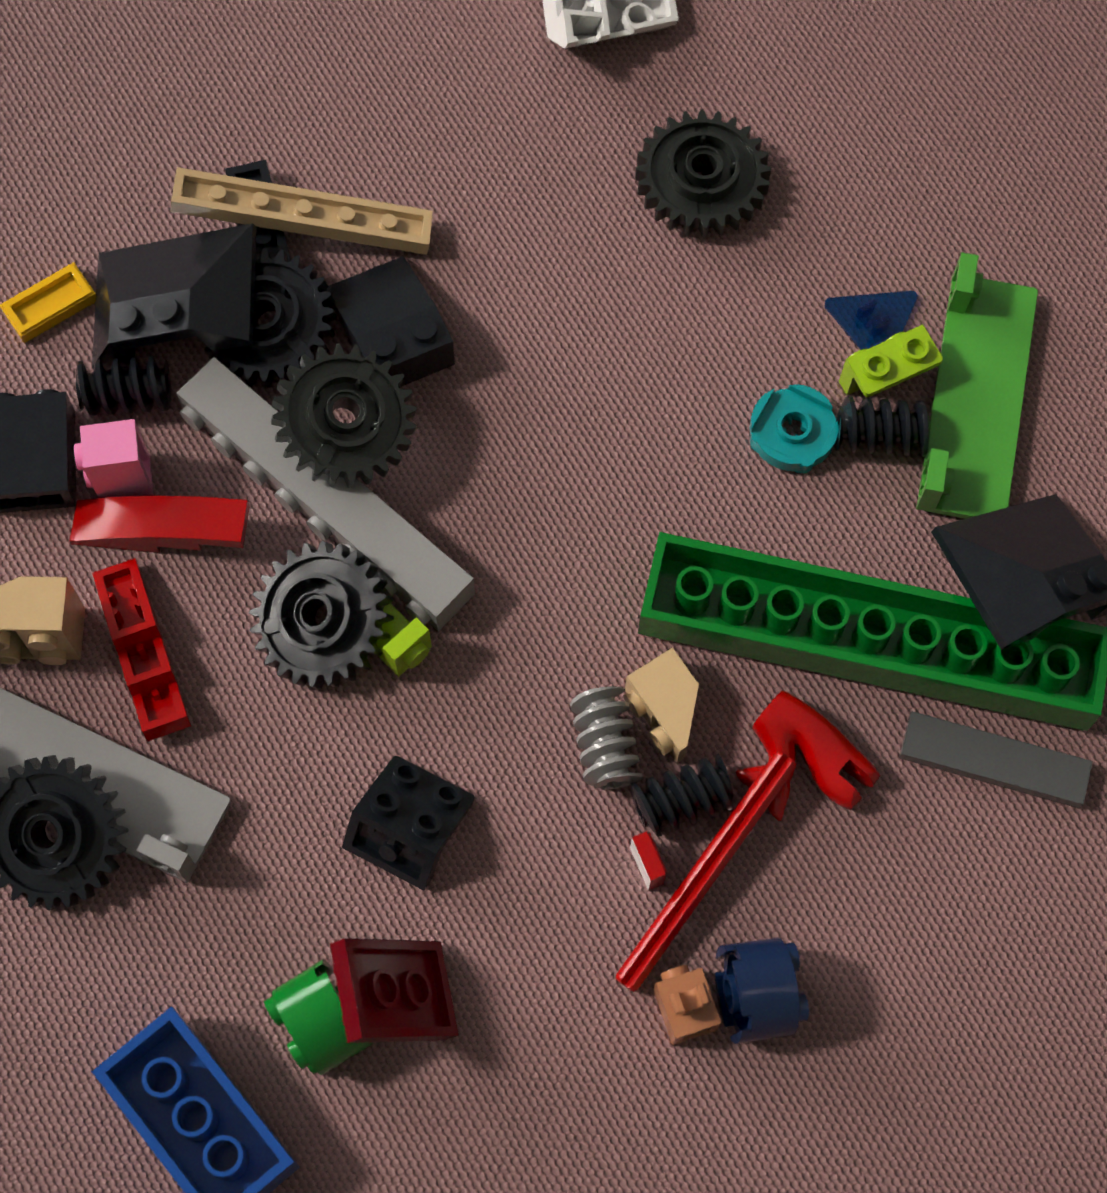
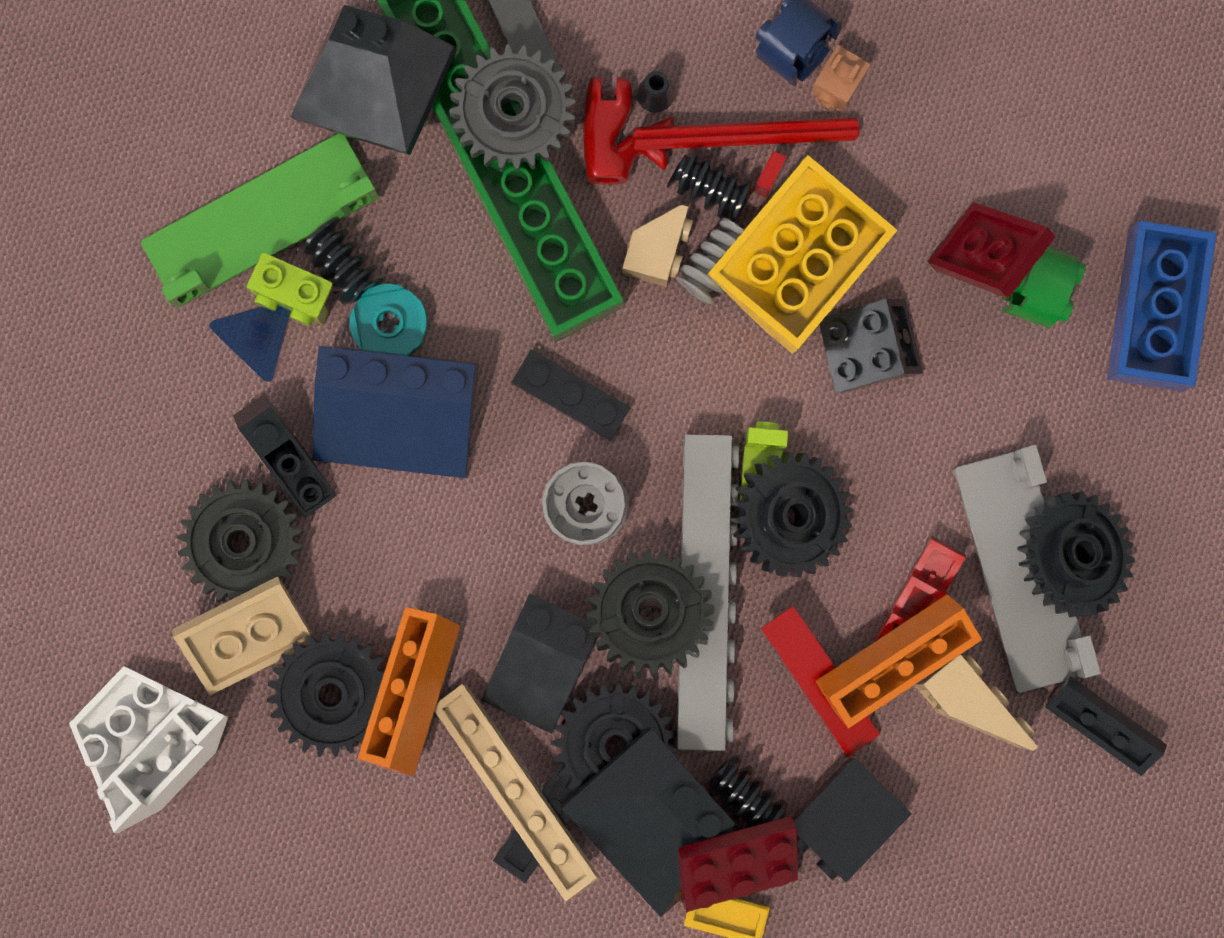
camera: 130 degrees left, 15 degrees up
(75, 327) = (738, 864): none -> dark red plate
(107, 581) = (898, 660): none -> orange brick
(114, 459) = (808, 746): bright pink brick -> none
(459, 194) = (409, 691): none -> orange brick
(481, 430) = (565, 514): none -> light grey wheel
(546, 151) = (299, 695): none -> black gear
(546, 815) = (801, 254): none -> yellow slope
(597, 527) = (570, 395): none -> black plate
(621, 114) = (242, 635): none -> tan plate
(714, 371) = (393, 411): none -> dark blue slope
(753, 258) = (284, 455): none -> black slope
(813, 831) = (655, 100): none -> black cone
(895, 685) = (506, 80): none -> dark grey gear

